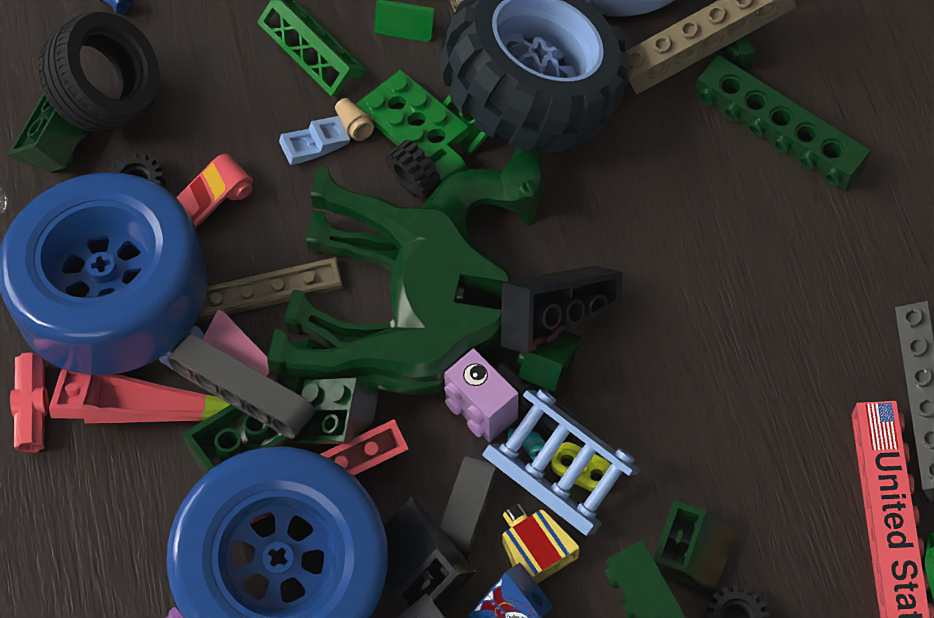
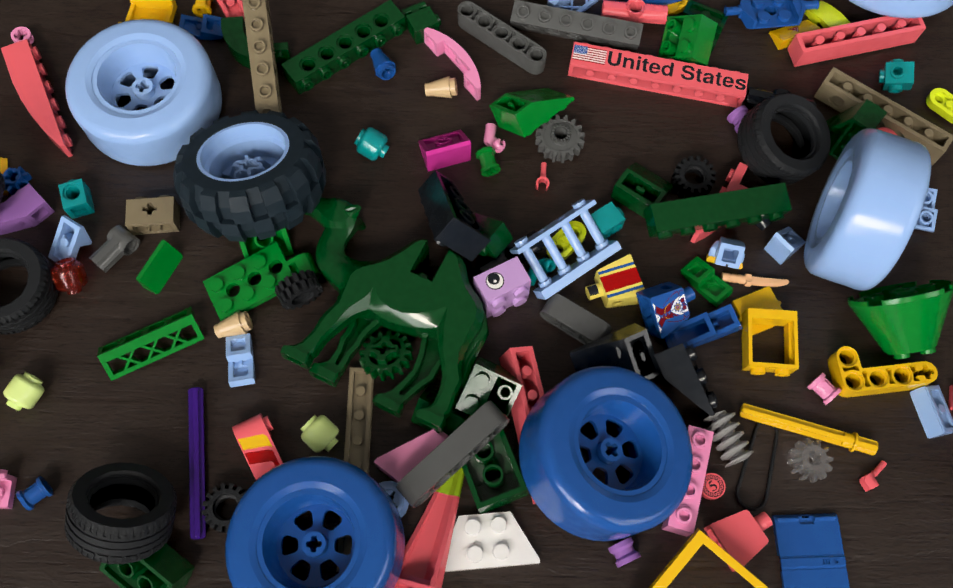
camera: 80 degrees left, 5 degrees up
(155, 468) = (488, 542): none -> white wing
(187, 133) = (196, 462): none -> dark purple axle
(243, 247) = (319, 433): none -> yellowish green head
(357, 290) = (388, 353): none -> dark green gear
(626, 511) = (609, 219): none -> teal brick
(645, 194) = (371, 144): none -> teal head
(668, 340) = (488, 162): none -> green bush
(669, 283) = (445, 150): none -> dark pink slope
(669, 418) = (543, 179): none -> coral hand
(705, 337) = (490, 139): none -> bright pink arm
(737, 407) = (570, 138): none -> dark grey gear
(764, 258) = (443, 87): none -> tan cone
(764, 367) = (528, 109): none -> green slope
(771, 174) = (383, 66): none -> blue cone
(791, 287) = (440, 44): none -> bright pink slope
(857, 204) = (419, 18): none -> dark green brick
(871, 321) = (501, 37): none -> dark grey beam

